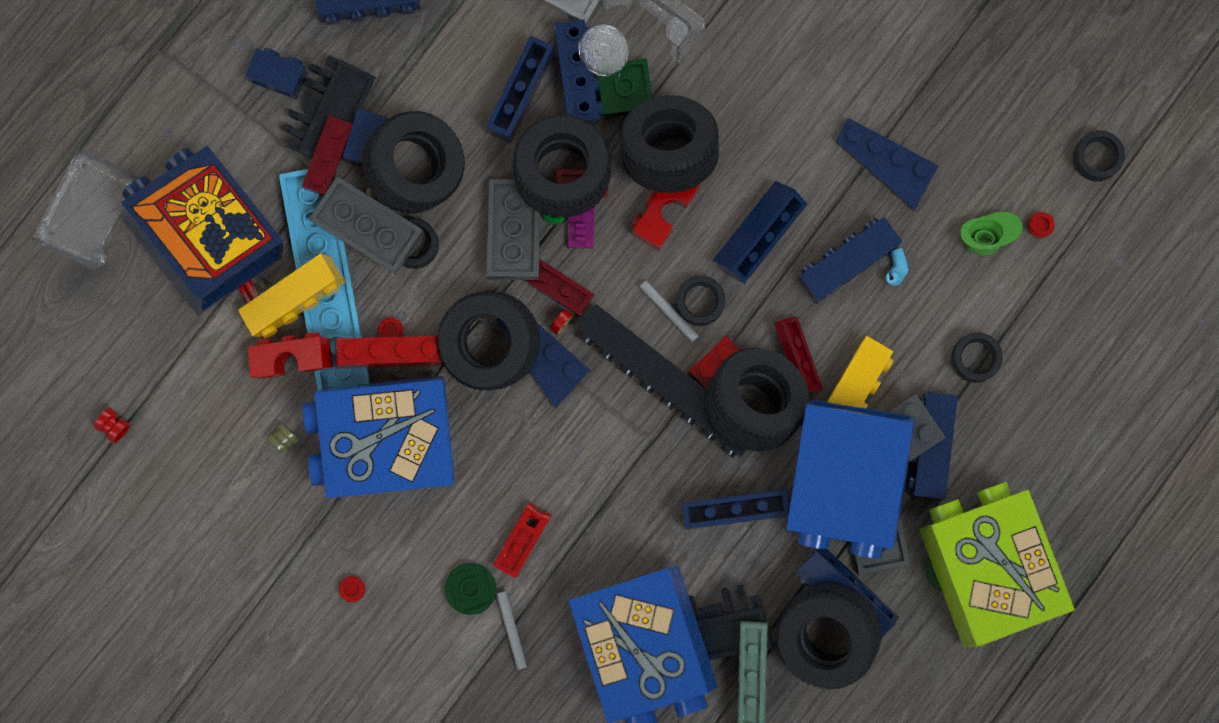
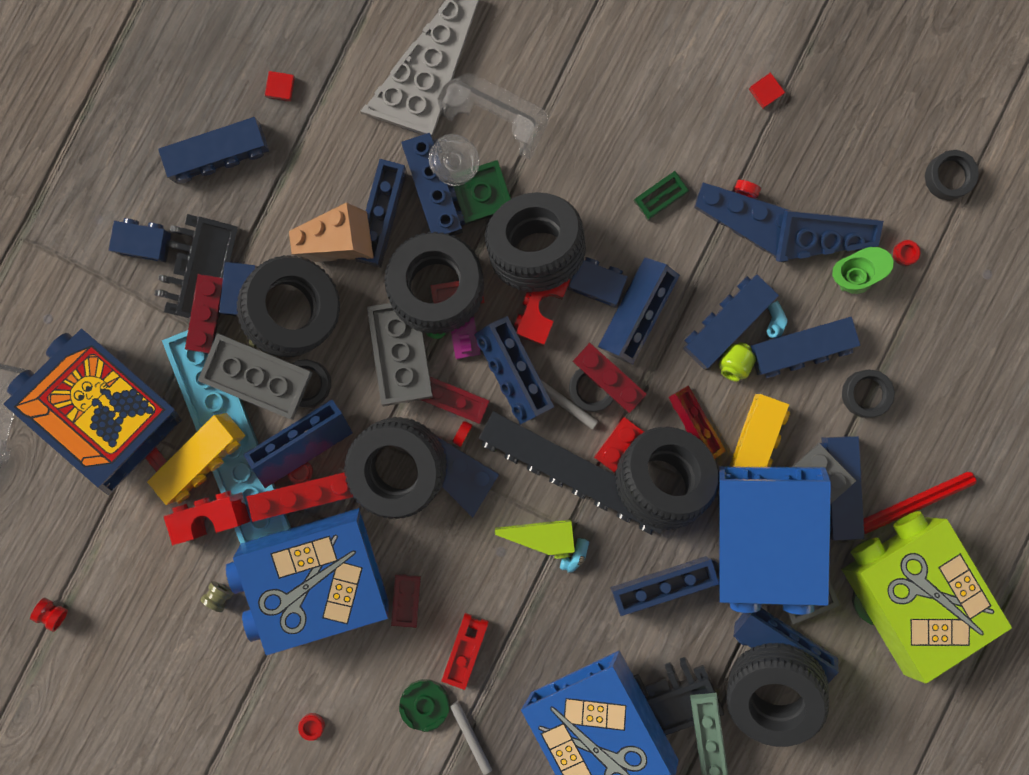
camera: 10 degrees left, 5 degrees up
(396, 299) = (299, 445): none -> dark blue brick
(471, 101) = (333, 236): none -> medium nougat wedge
(472, 478) = (406, 600): none -> dark red plate
(624, 267) = (513, 370): none -> dark blue brick
(625, 440) = (547, 537): none -> lime slope
(654, 467) = (578, 557): none -> medium azure arm
(718, 291) = (609, 377): none -> dark red plate
(724, 197) = (598, 282): none -> dark blue brick
(785, 132) = (644, 207): none -> dark green tile
(849, 301) = (737, 362): none -> lime head
(891, 132) = (747, 188): none -> red tile
(920, 298) = (805, 346): none -> dark blue brick
(928, 39) = (766, 90): none -> red tile
(954, 189) = (815, 234): none -> dark blue wing
(1010, 475) = (919, 501): none -> red axle

